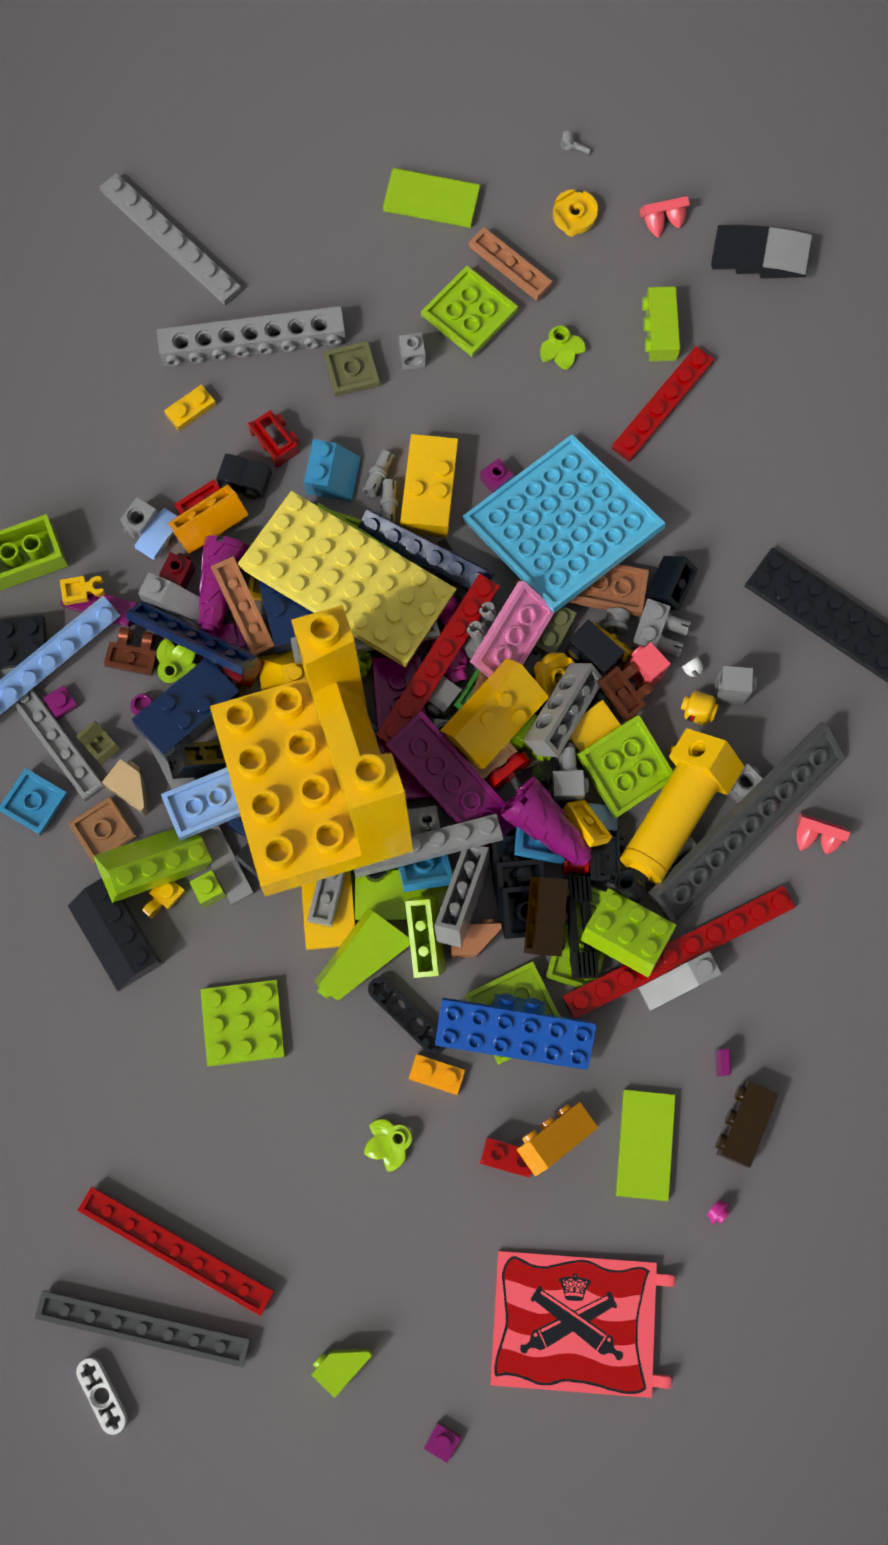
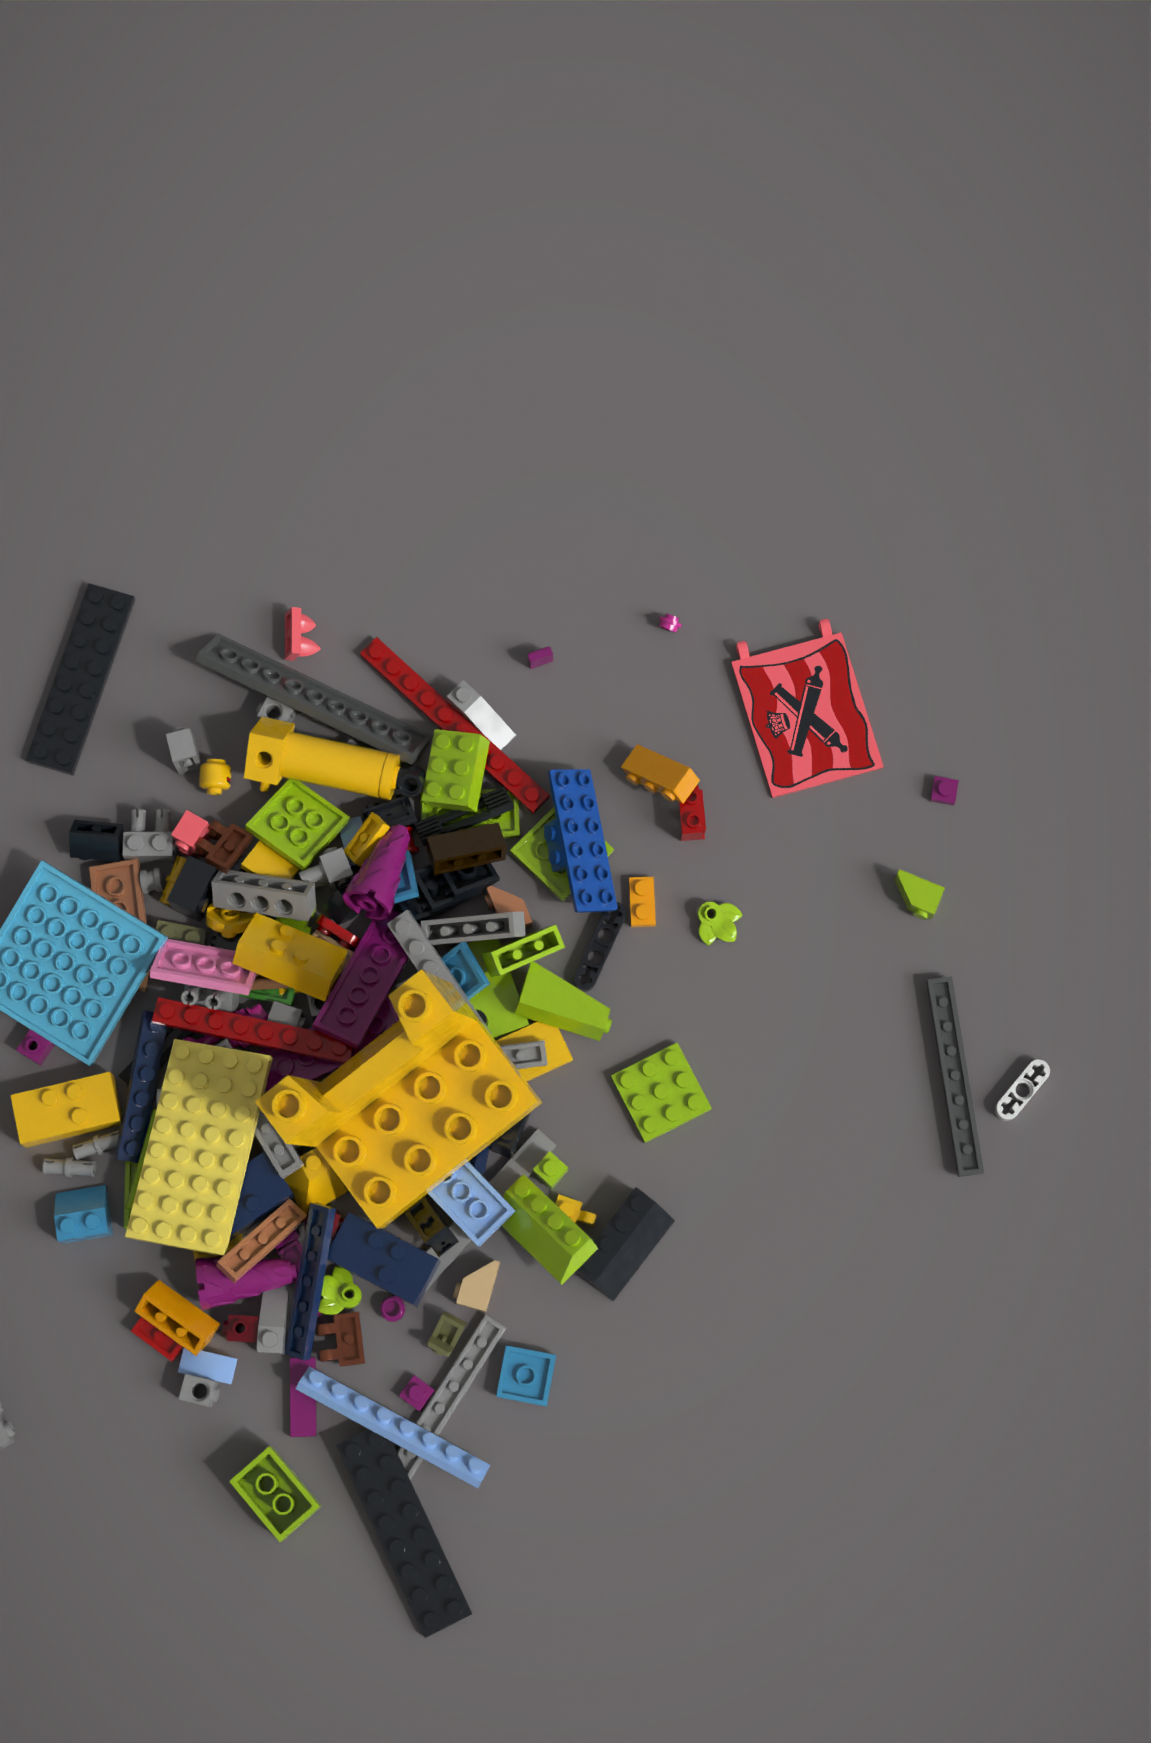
camera: 110 degrees left, 0 degrees up
(76, 589) = (297, 1420): yellow plate -> none
(102, 828) = (529, 1297): medium nougat tile -> none
(176, 1251) = (880, 1074): red plate -> none
(190, 407) = (56, 1391): yellow plate -> none
(244, 475) = (116, 1302): black brick -> none
(279, 455) = (72, 1291): red window -> none
(645, 1145) = (635, 702): lime tile -> none
(690, 667) = (173, 796): white hinge -> none
(746, 1124) = (586, 622): dark brown brick -> none

